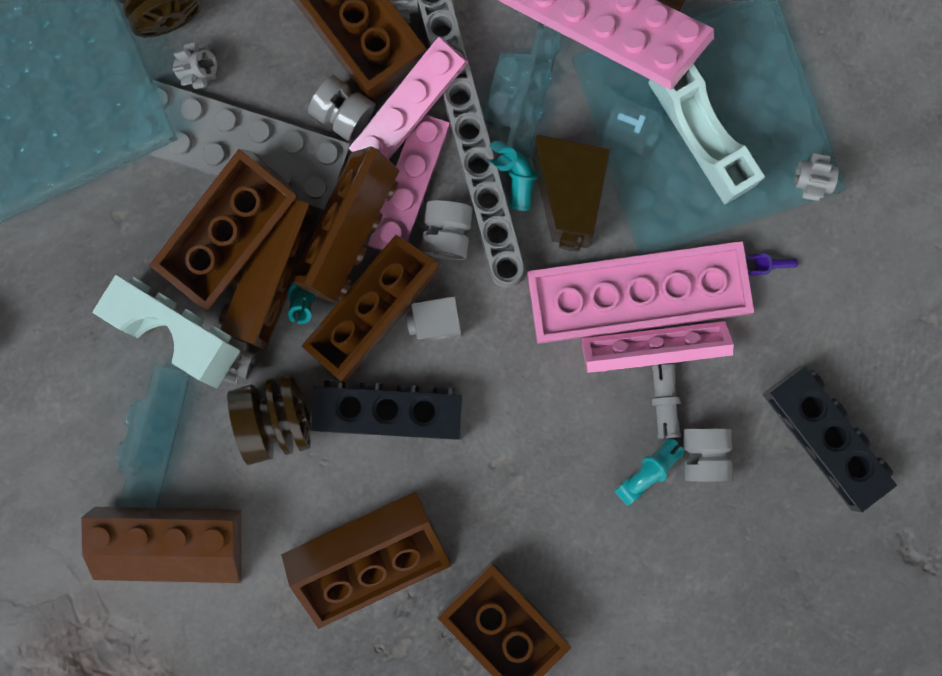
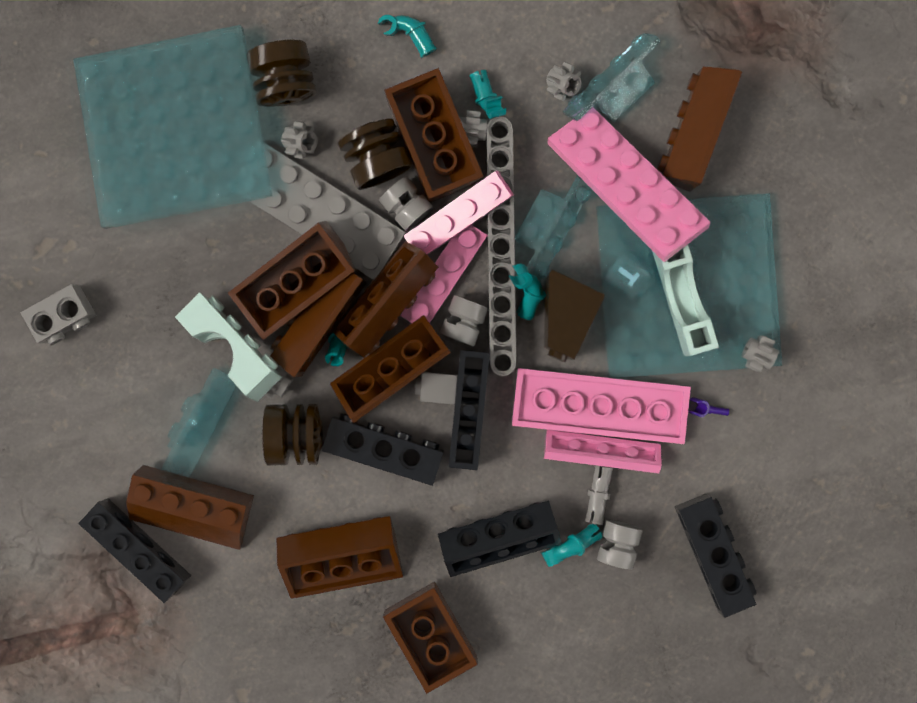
camera: 10 degrees right, 5 degrees up
(108, 614) = (134, 549): none -> black brick
(289, 56) = (373, 149): none -> dark brown wheel
(480, 334) = (469, 410): none -> black brick
(558, 485) = (490, 550): none -> black brick

